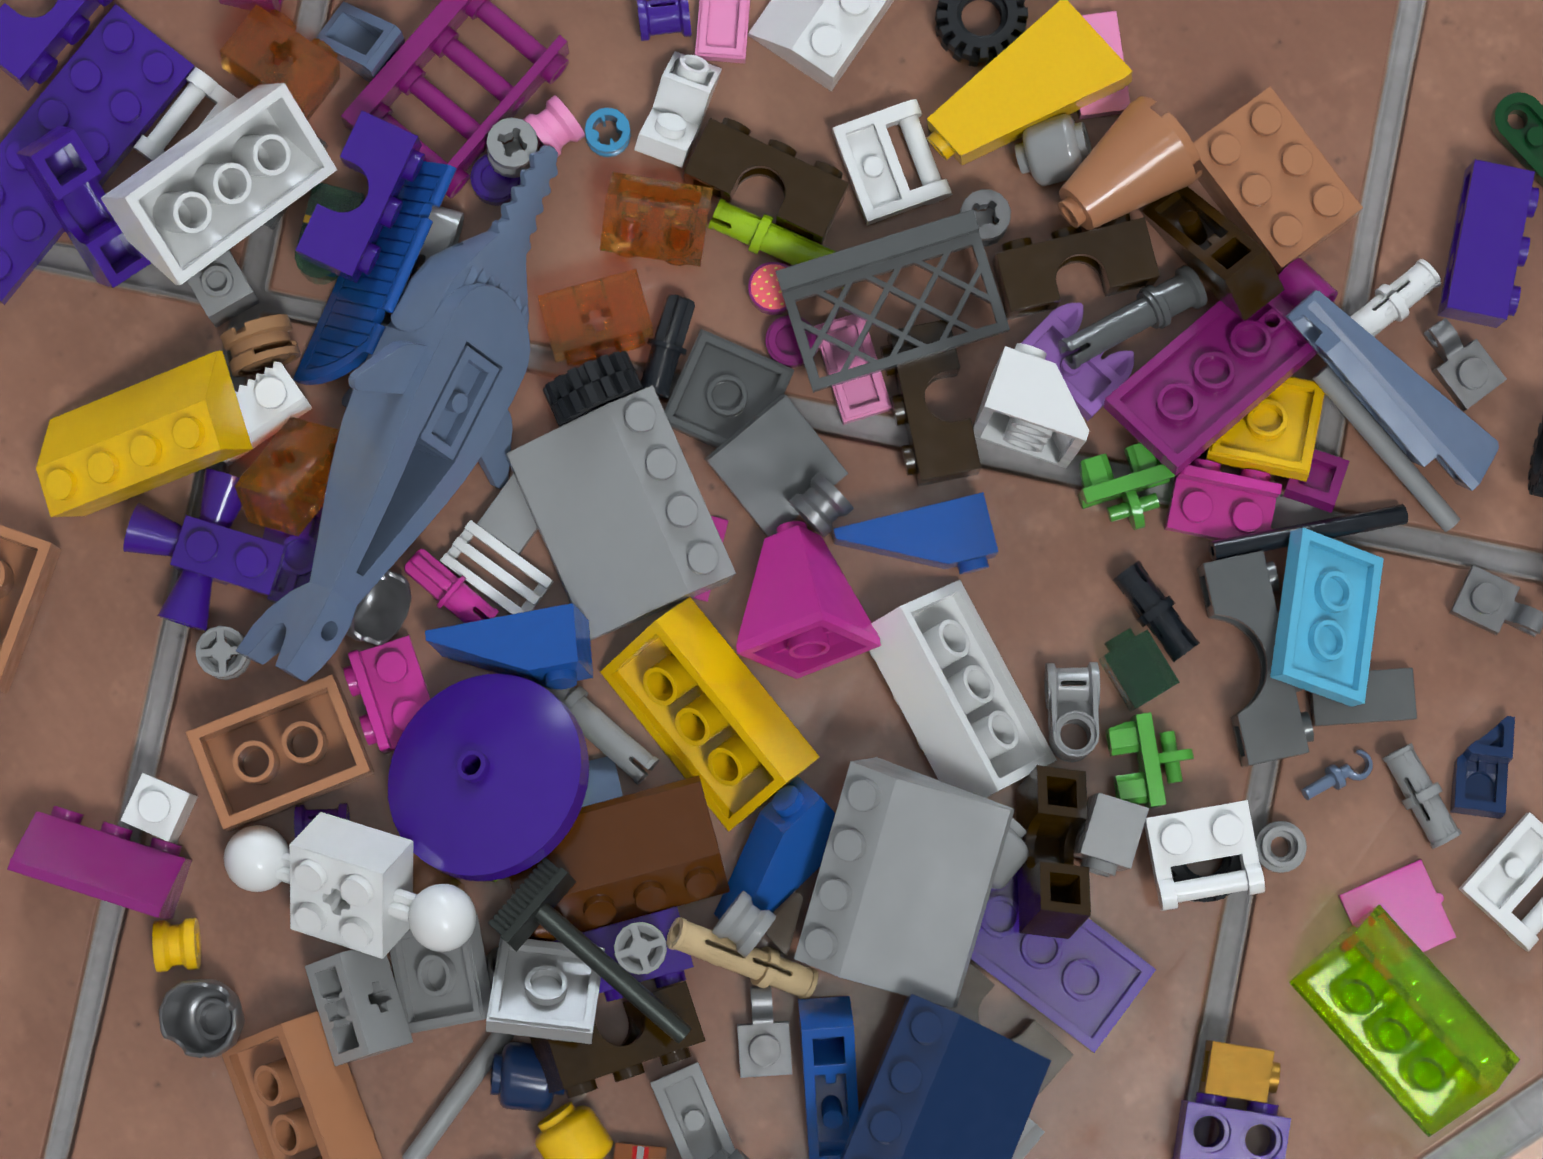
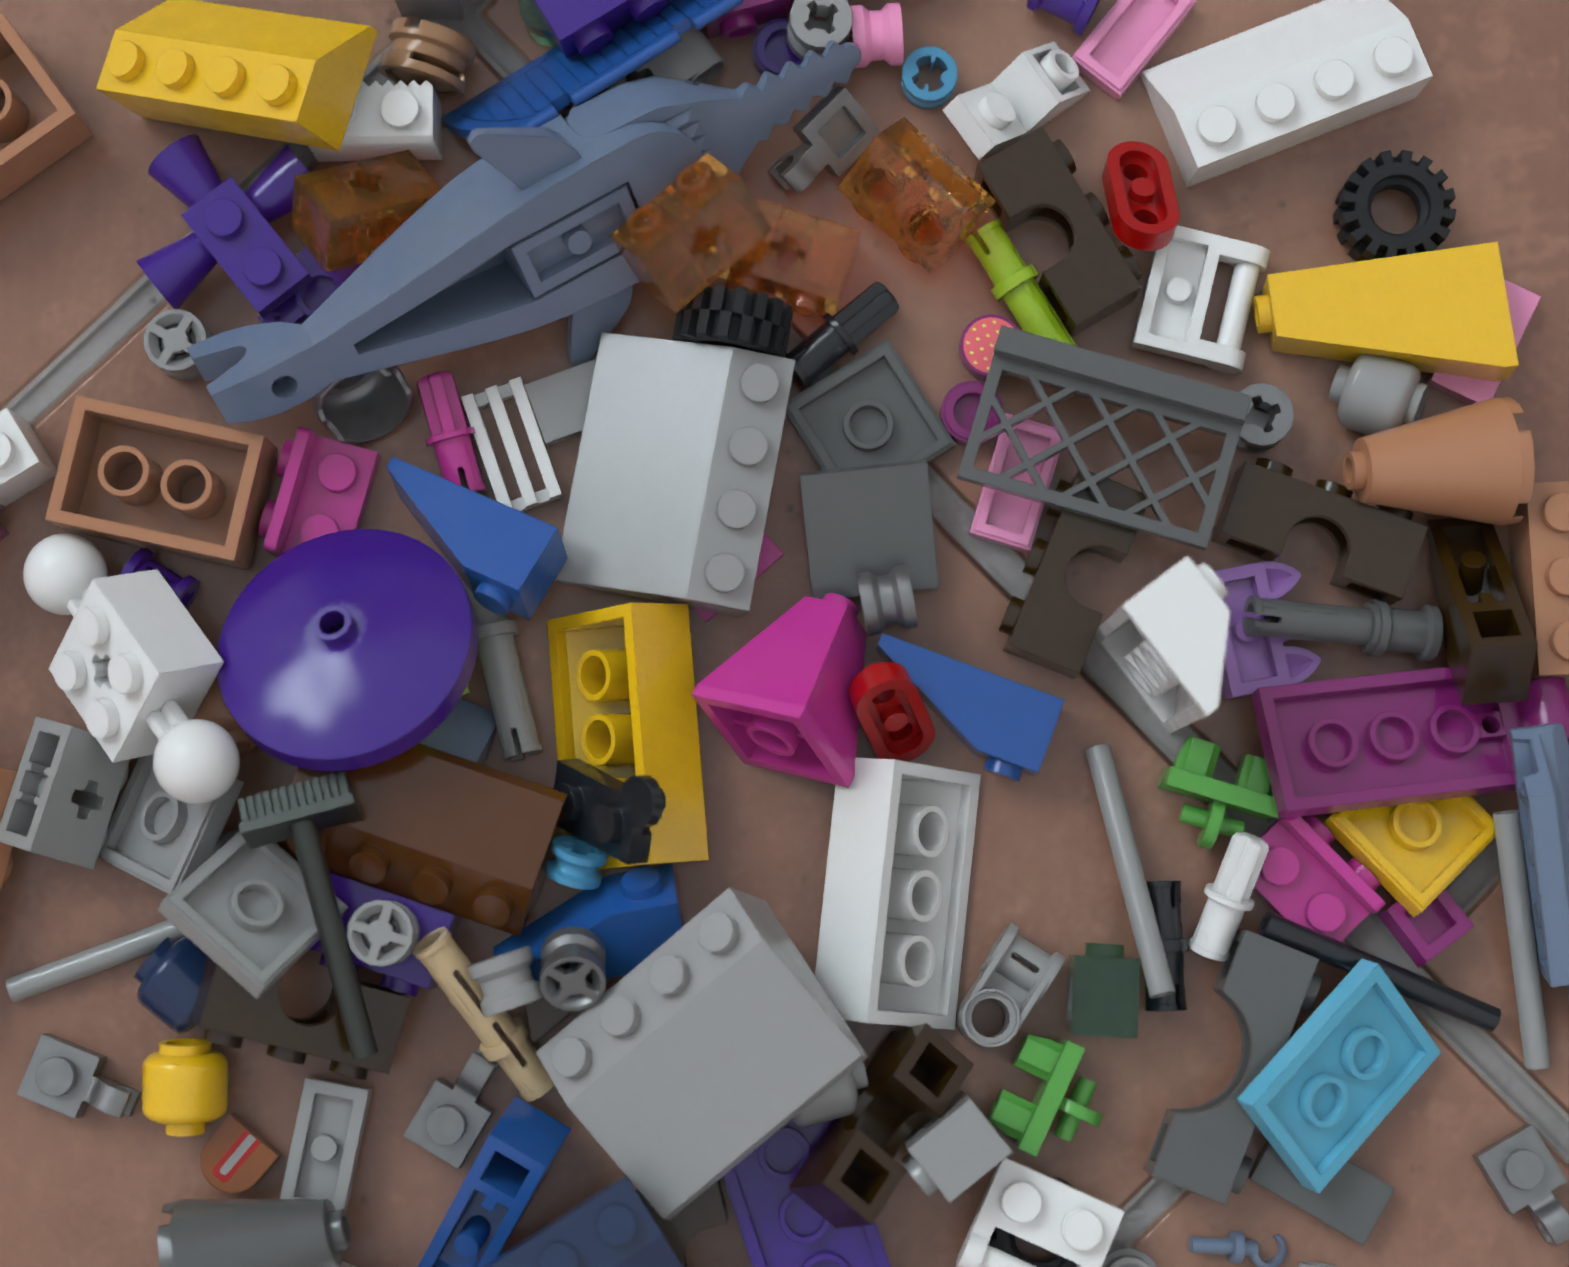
camera: 45 degrees right, 0 degrees up
(528, 346) = (691, 232): none -> clear orange brick
(573, 217) = (832, 139): none -> flat silver plate
(734, 767) = (608, 811): none -> black hinge
(734, 817) = (575, 863): none -> dark azure bush
(791, 895) = (580, 983): none -> flat silver wheel
(813, 128) = (1140, 196): none -> red plate
(874, 576) = (891, 711): none -> red plate
(1101, 576) = (1130, 871): none -> light grey piece
(1177, 549) = (1229, 896): none -> white axle

